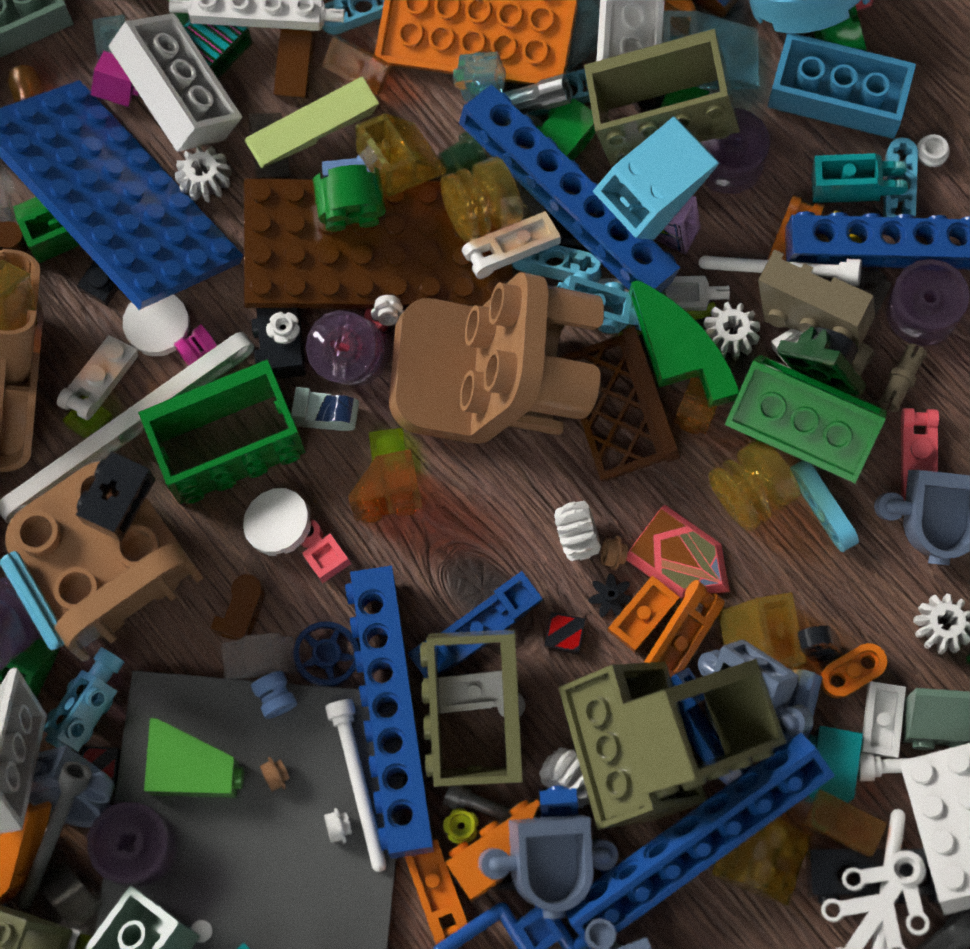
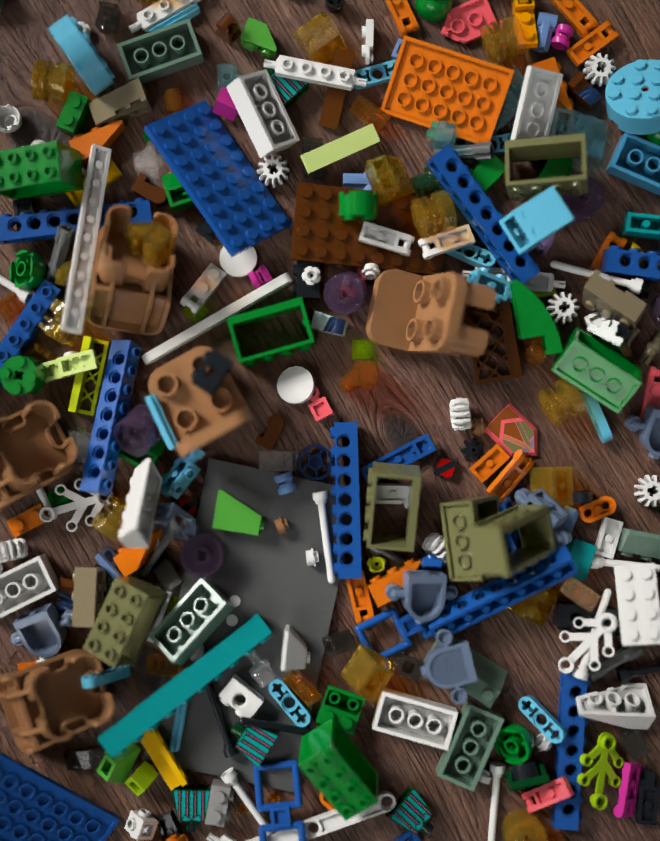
camera: 10 degrees right, 15 degrees up
(406, 250) = (386, 238): none -> white plate

